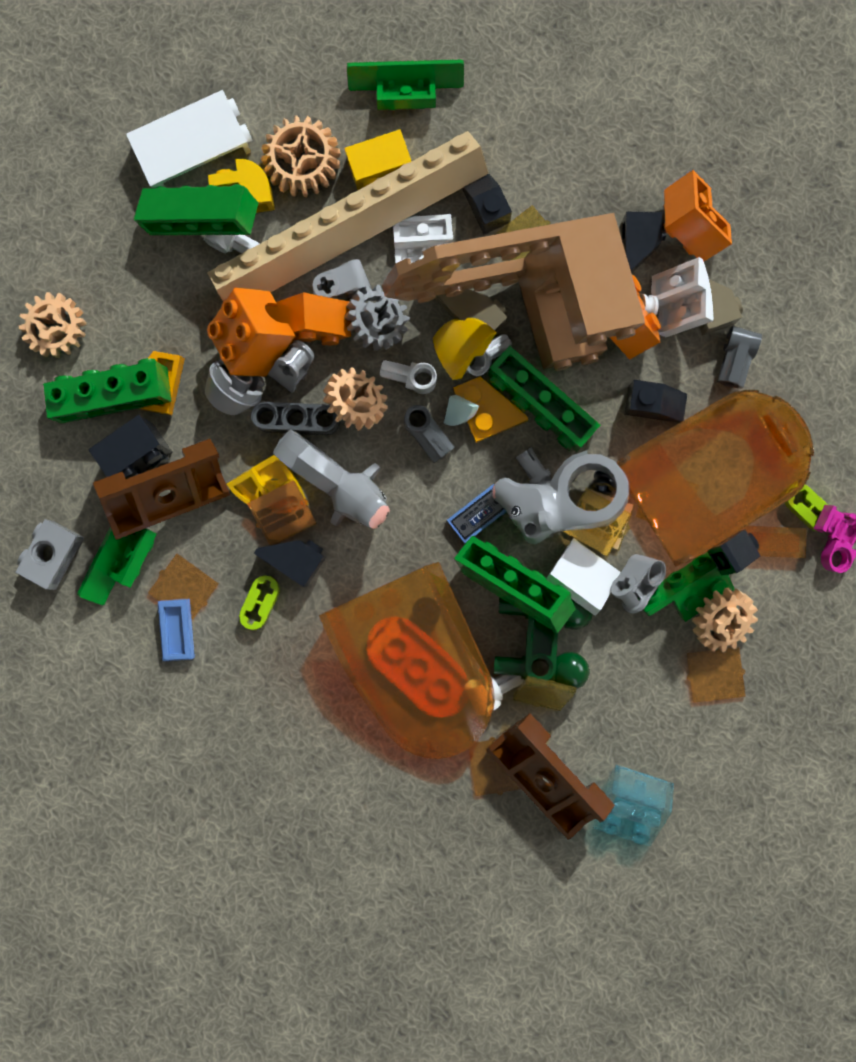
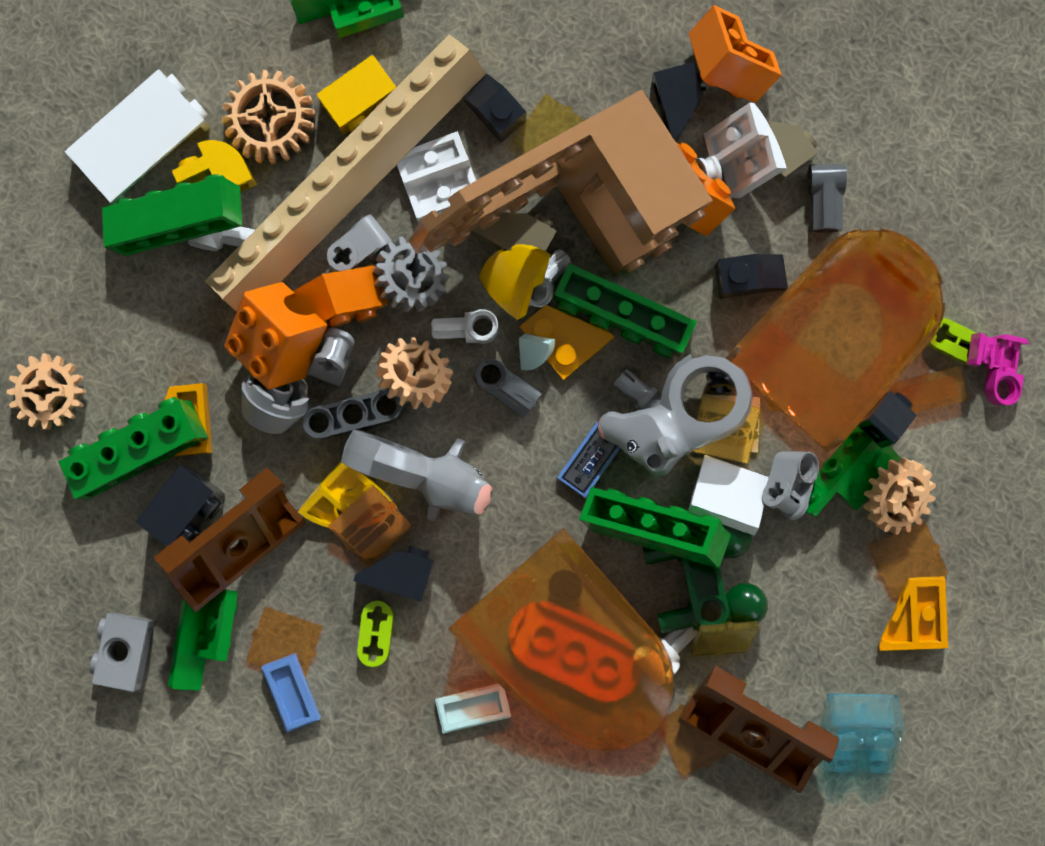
camera: 20 degrees left, 0 degrees up
(320, 687) = (472, 708): none -> tile
(710, 724) = (918, 617): none -> light orange wing

